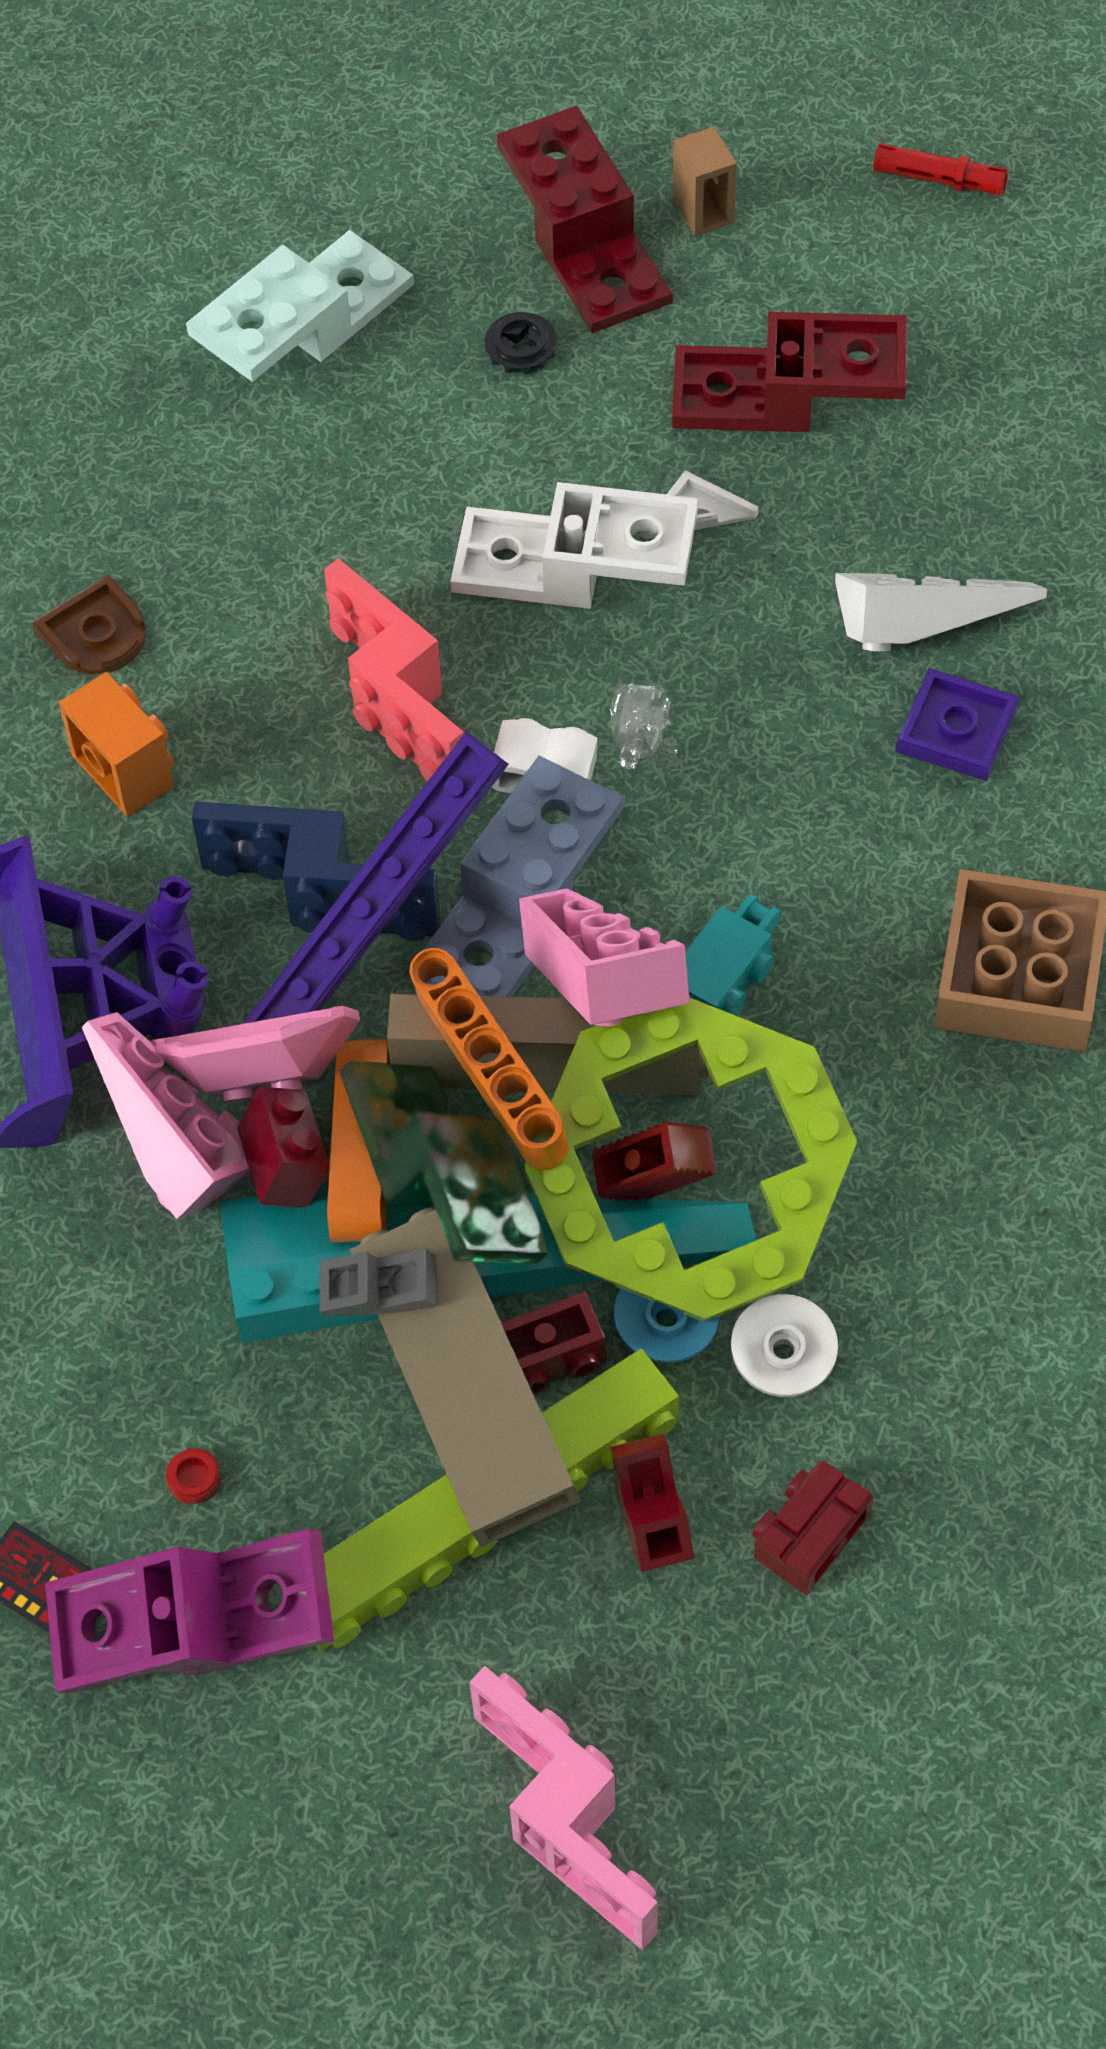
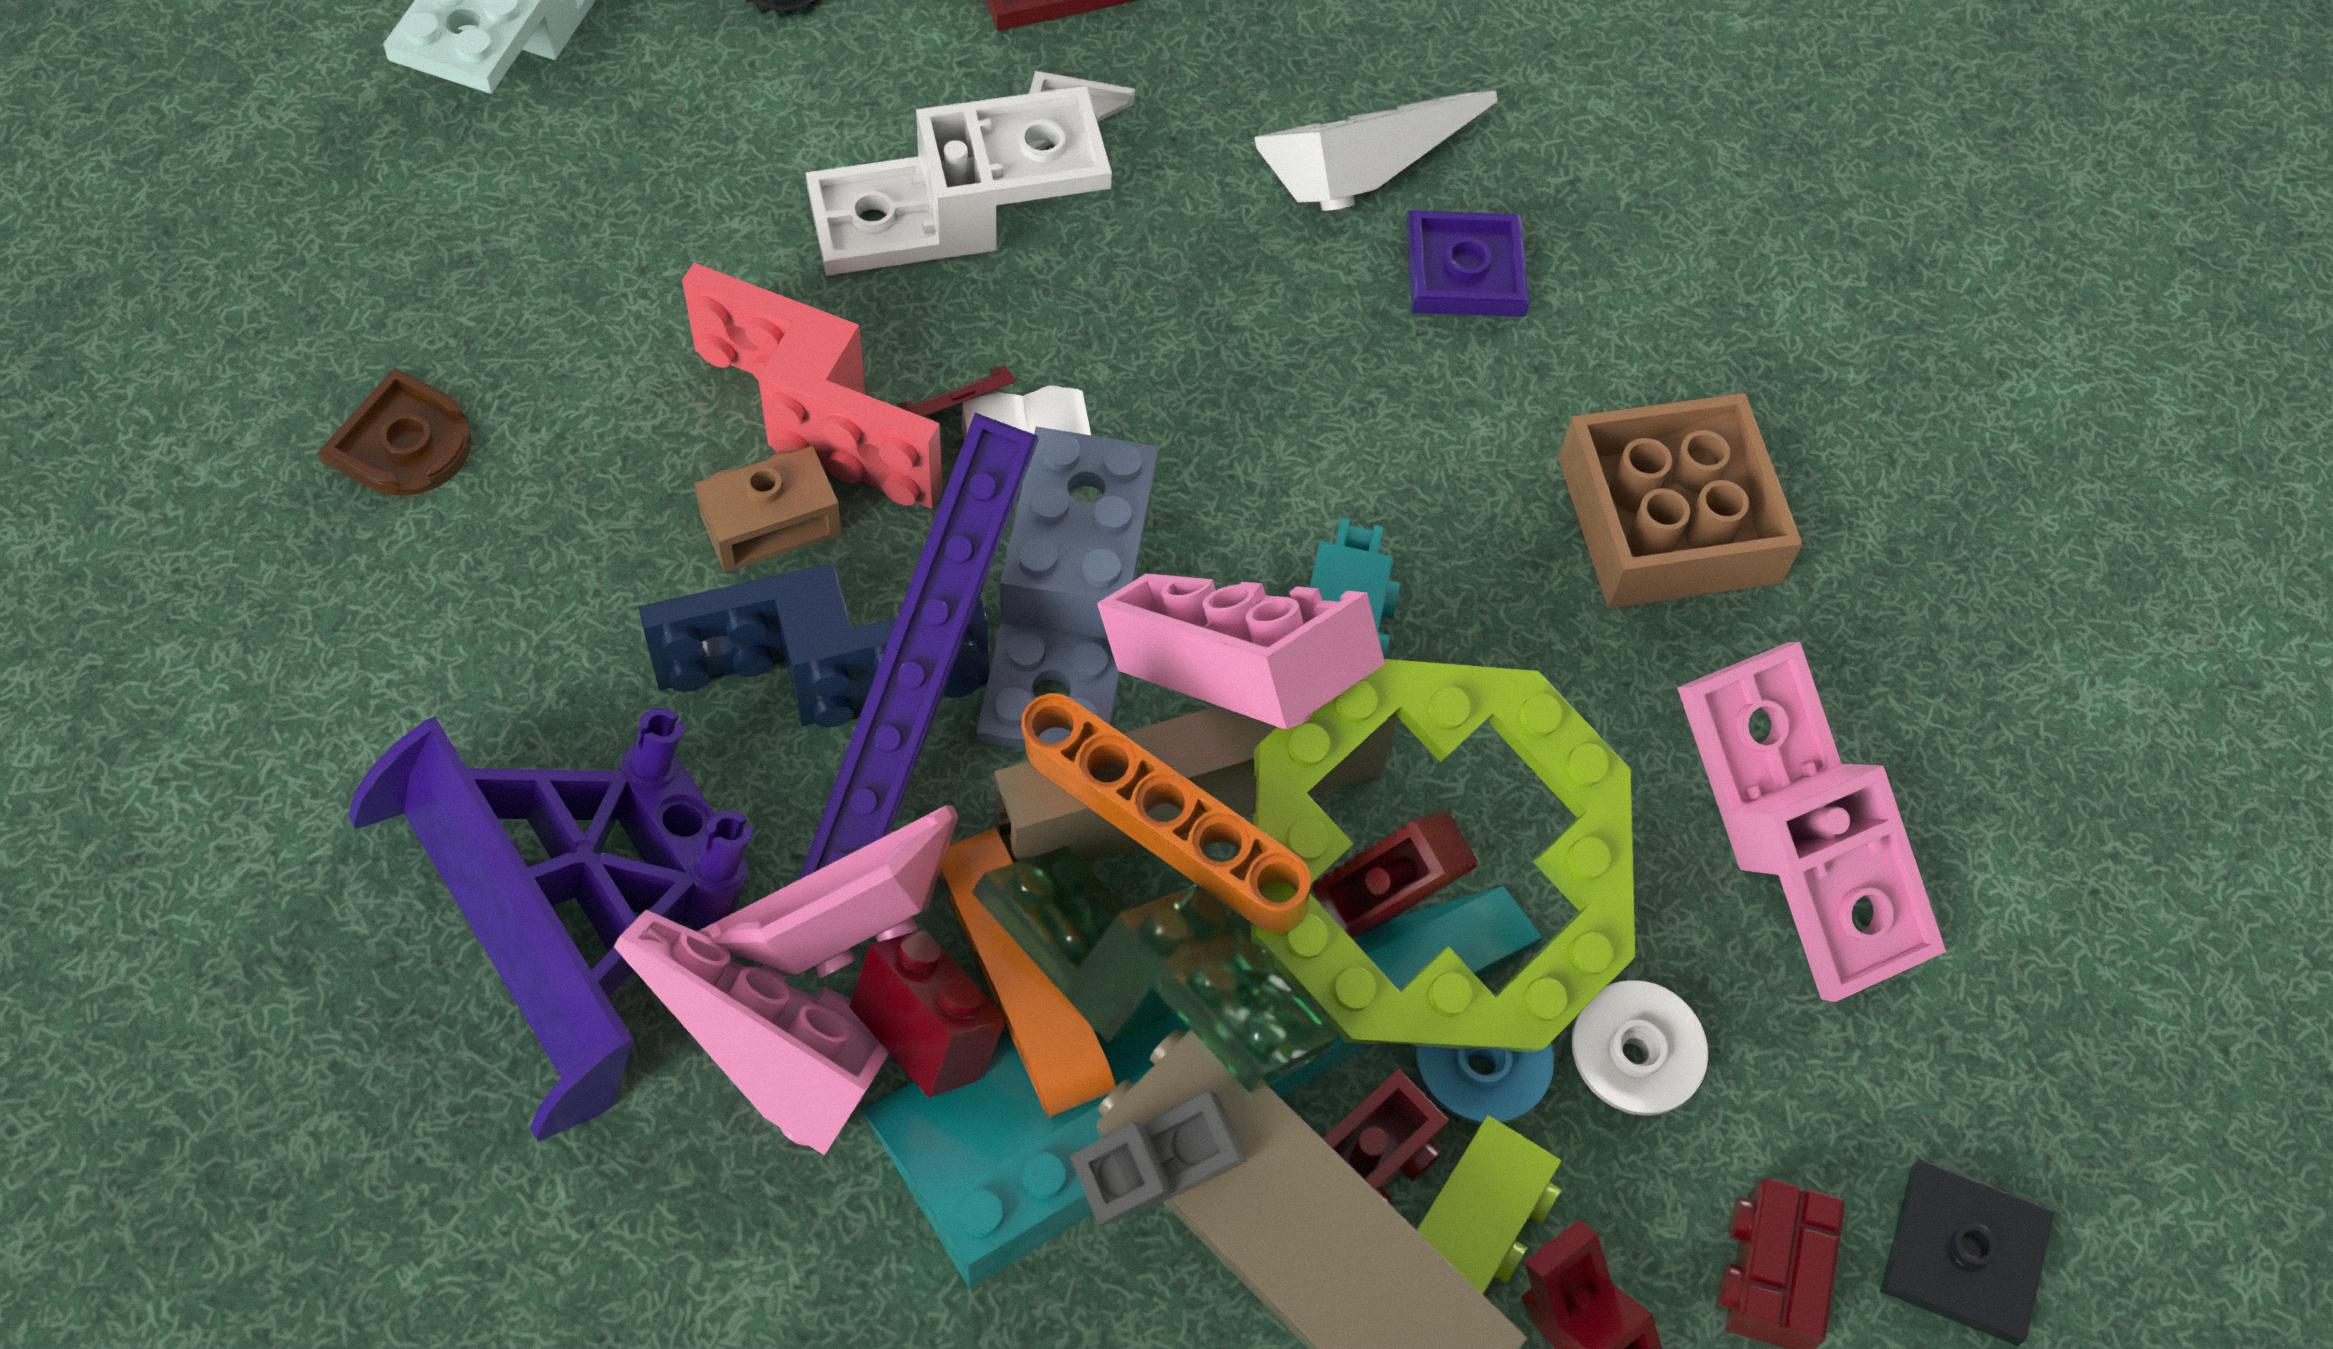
camera: 30 degrees left, 0 degrees up
(118, 743) = (495, 565): orange brick -> none
(329, 759) = (768, 508): none -> medium nougat brick
(502, 714) = (999, 378): none -> dark red piece
(638, 724) = (1116, 354): clear piece -> none
(960, 1569) = (1968, 1252): none -> black plate
(993, 1228) = (1812, 821): none -> bright pink bracket

